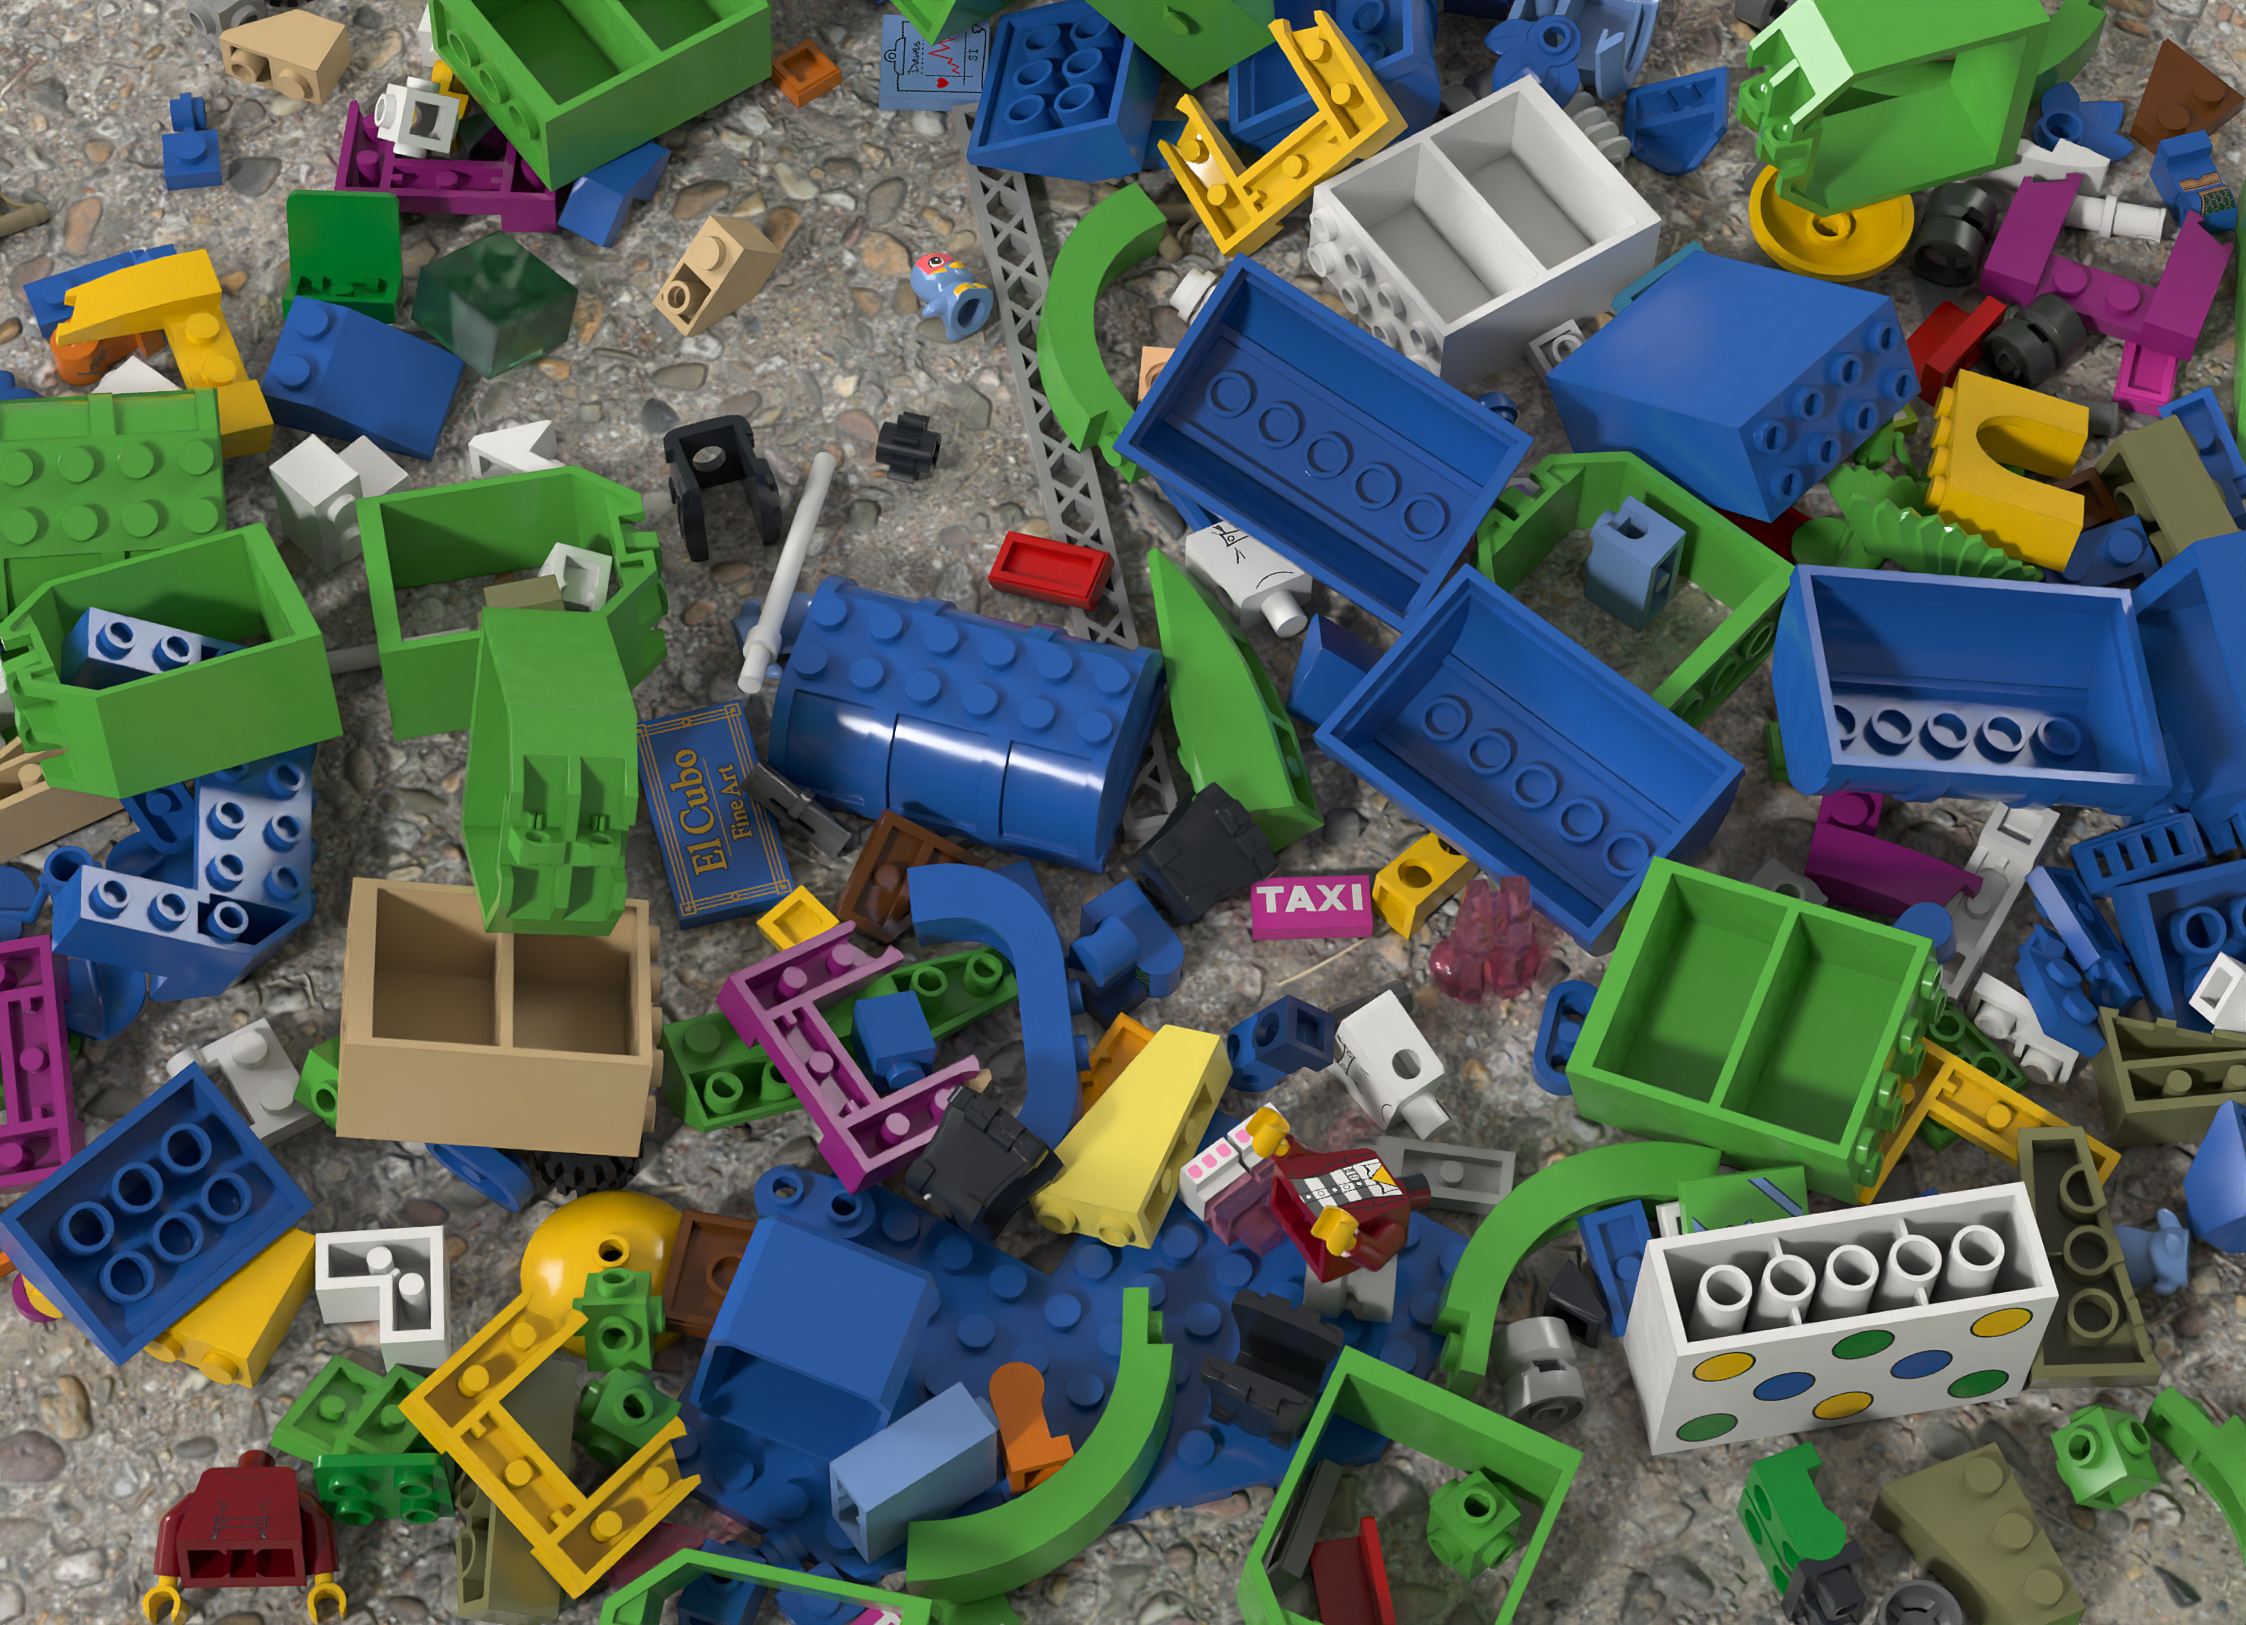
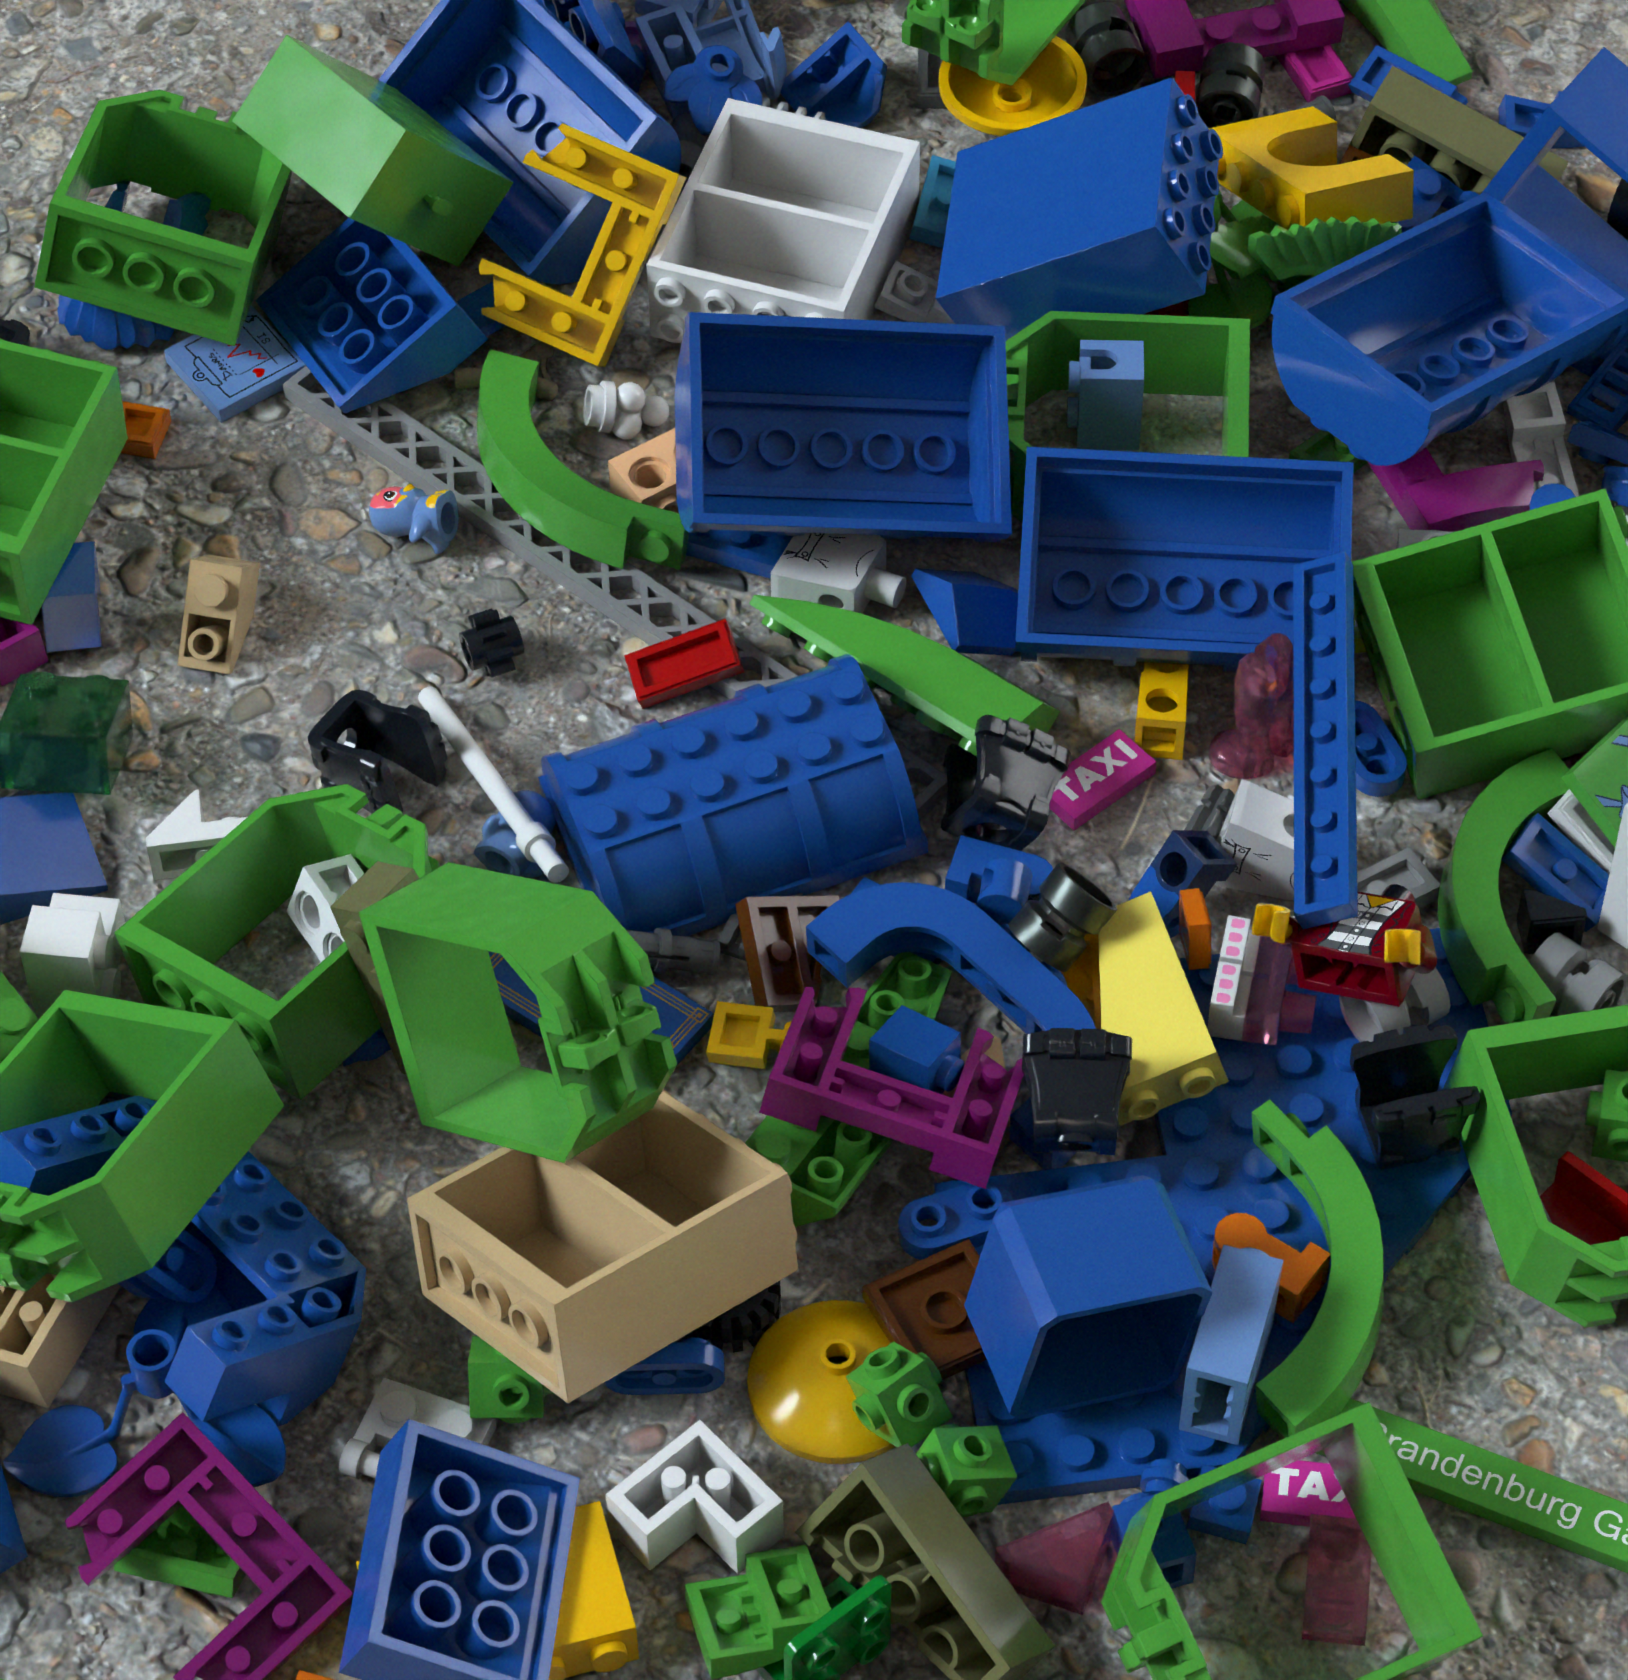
camera: 35 degrees left, 5 degrees down
(570, 1533) = (873, 1526): yellow wedge -> none
(1123, 1006) = (1075, 902): none -> pearl dark grey wheel
(1246, 1092) = (1195, 928): none -> orange tile
(1470, 1001) = (1324, 742): none -> blue plate

